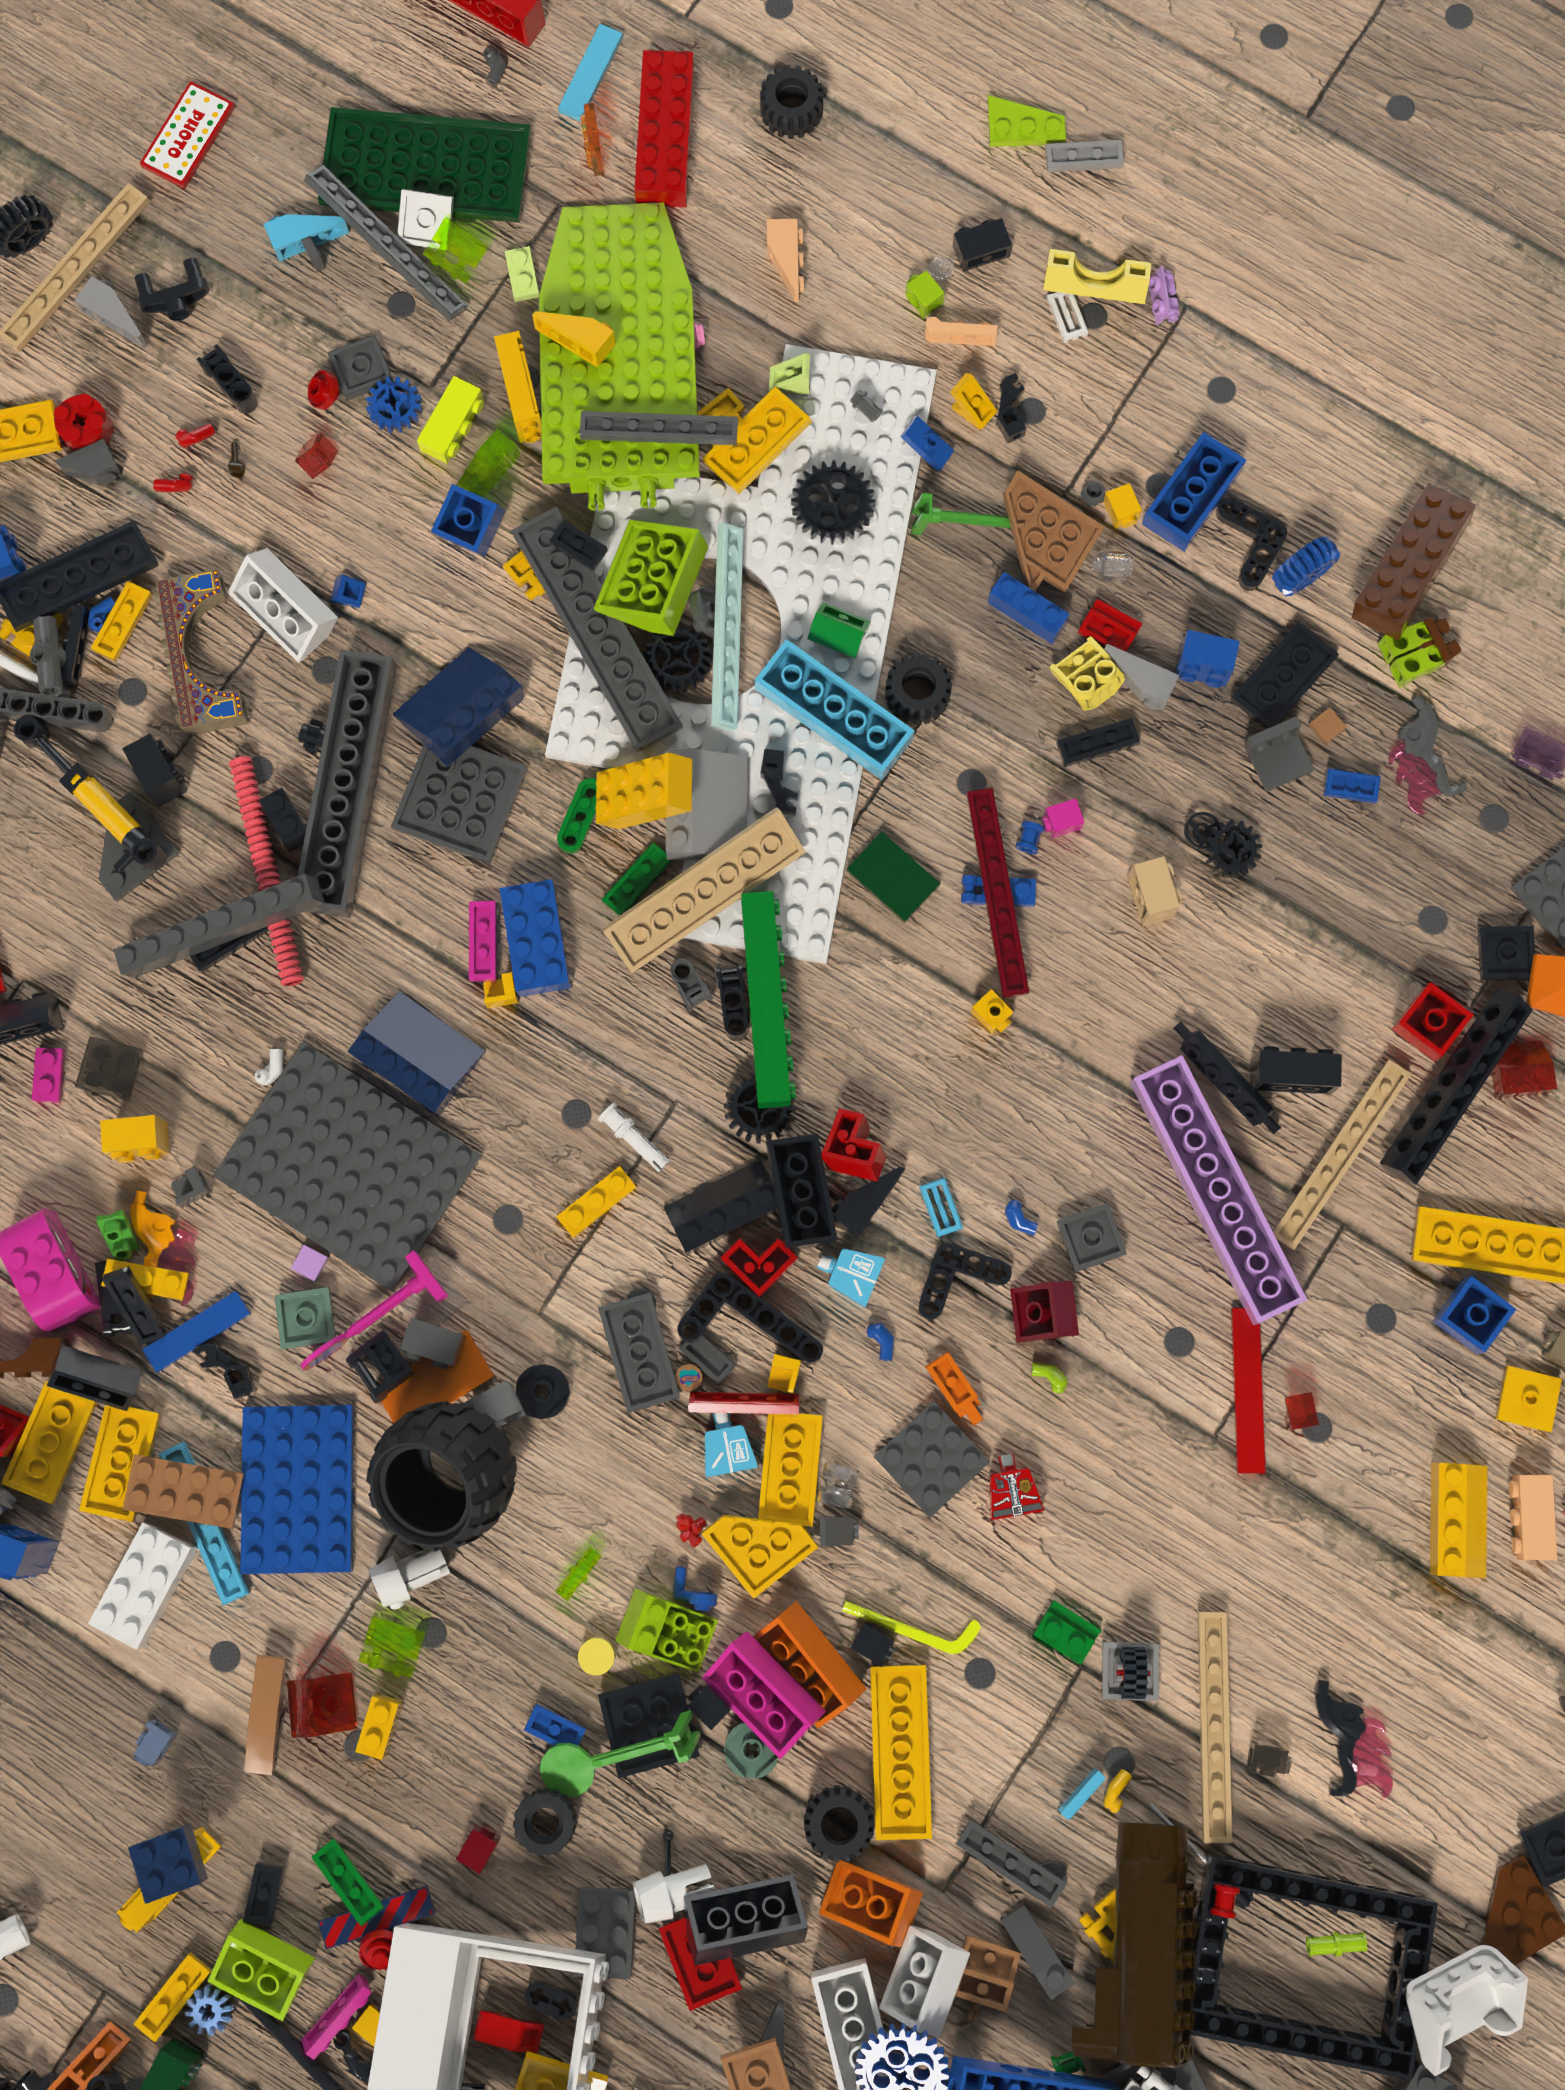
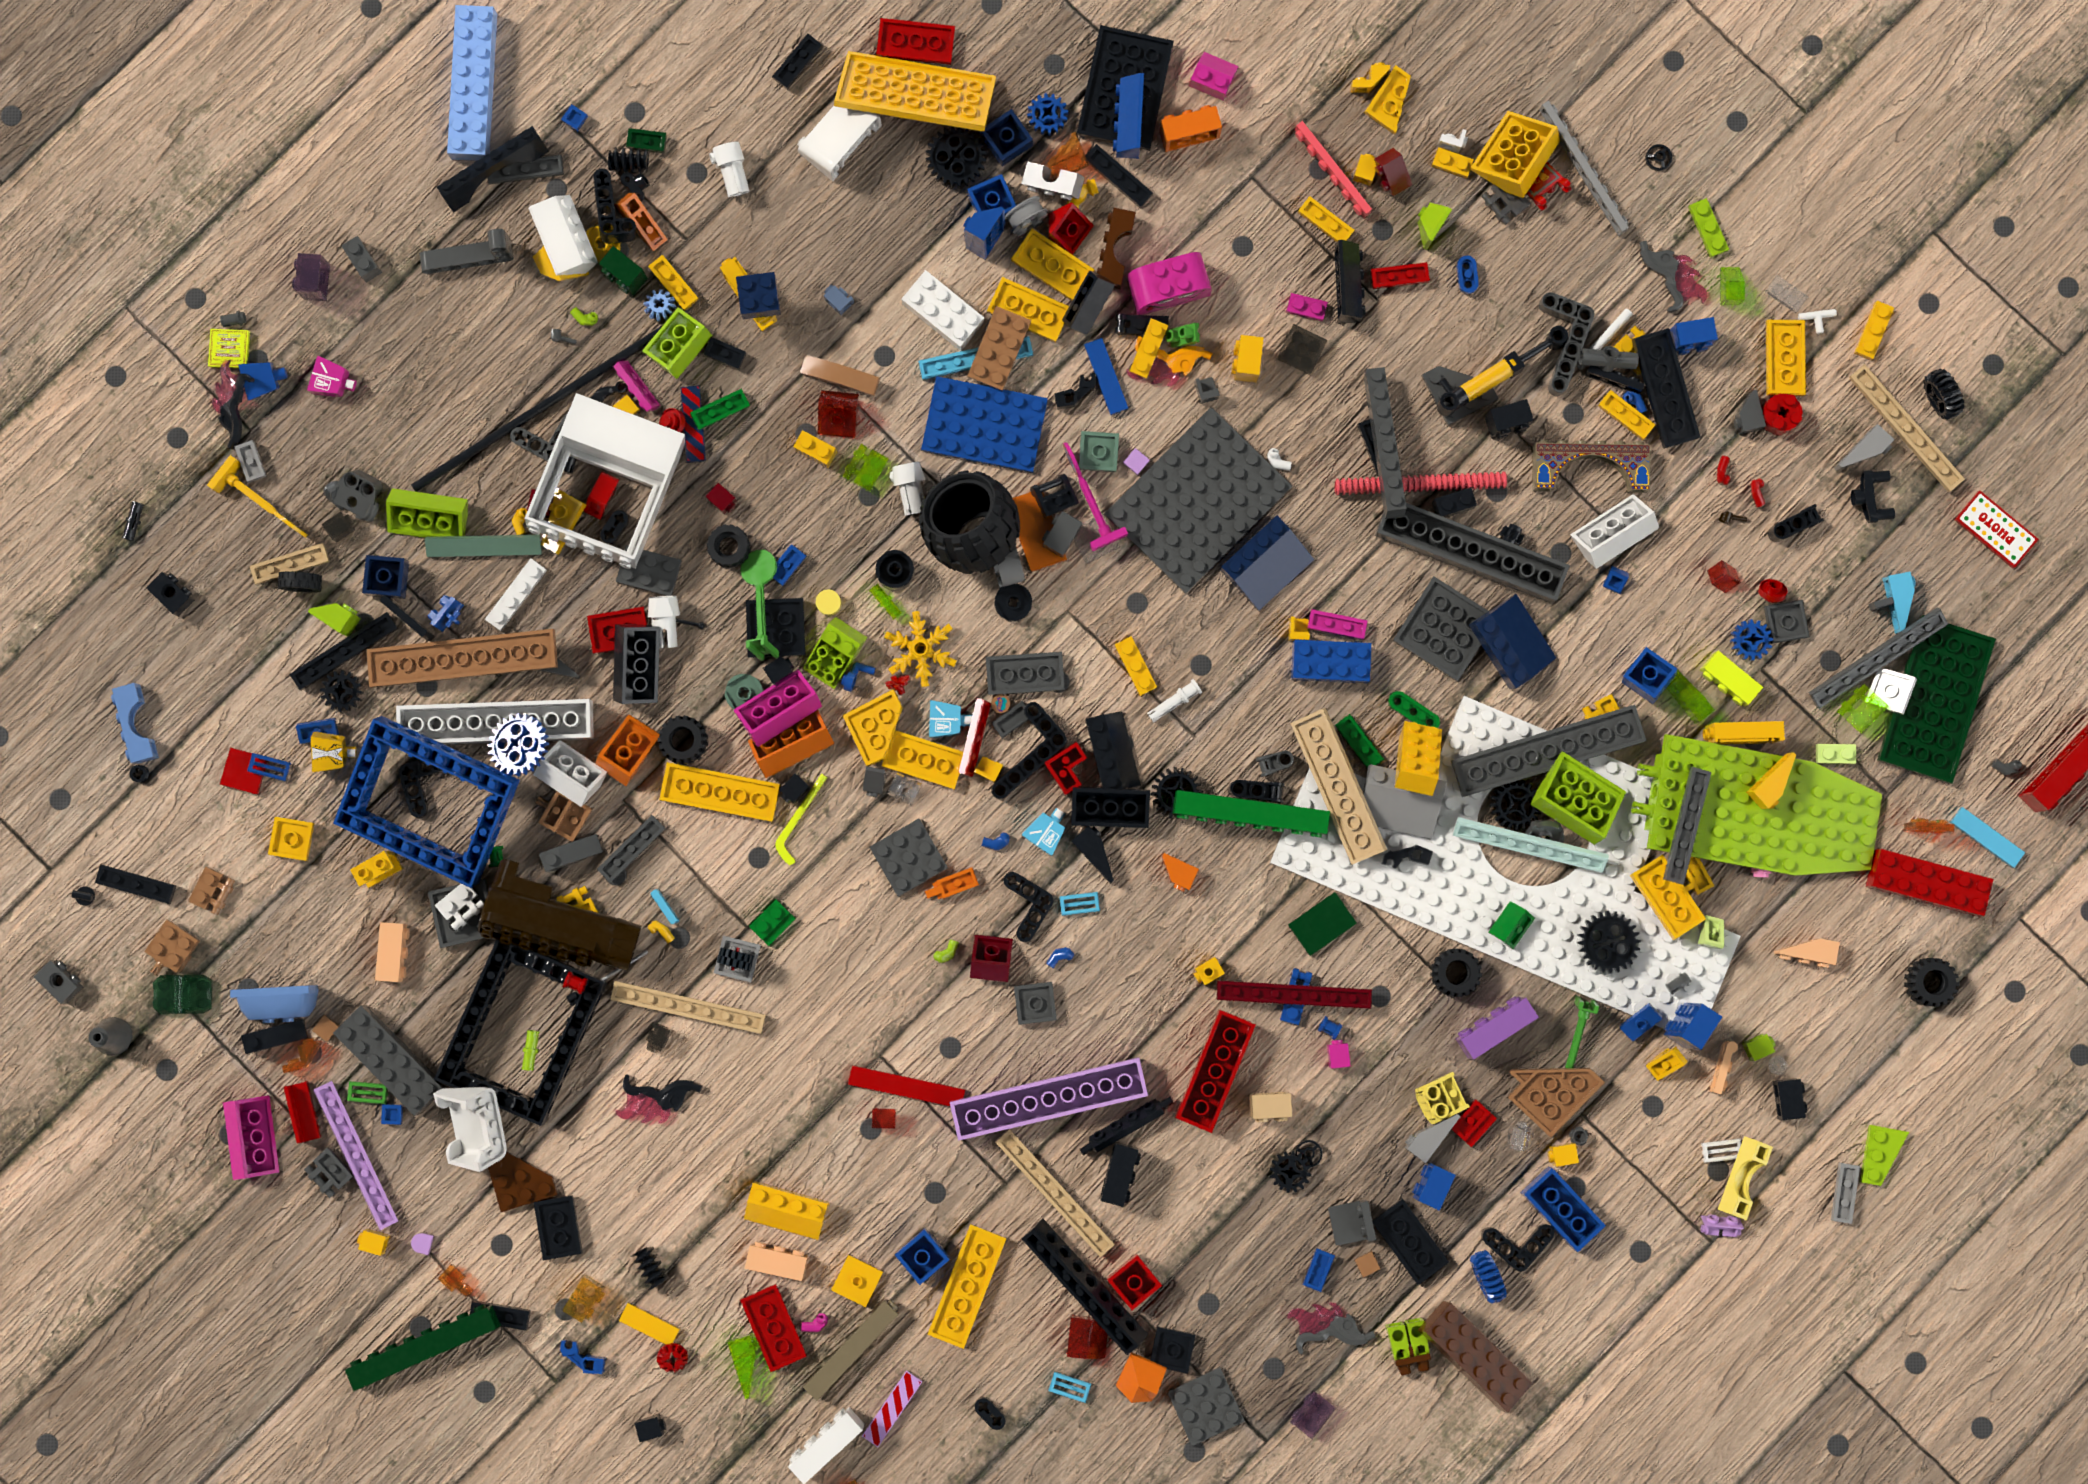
camera: 95 degrees right, 5 degrees up
(134, 1305) = (1132, 338): black plate -> none
(523, 1583) = (888, 562): none -> black brick
(578, 545) = (1611, 750): black plate -> none
(624, 1512) = (923, 672): none -> yellow piece
(834, 709) = (1451, 907): medium azure brick -> none
(848, 1149) = (1133, 846): red brick -> none
(868, 1080) = (1179, 872): none -> orange slope
(920, 368) = (1692, 1025): none -> blue brick
(979, 621) = (1497, 1027): none -> medium lavender brick
(1008, 396) = (1667, 1091): black piece -> none
(1012, 1491) = (874, 907): torso -> none
(1028, 608) = (1500, 1066): blue brick -> none
(1098, 742) = (1389, 1093): black plate -> none
(1125, 974) = (1215, 1071): none -> red brick

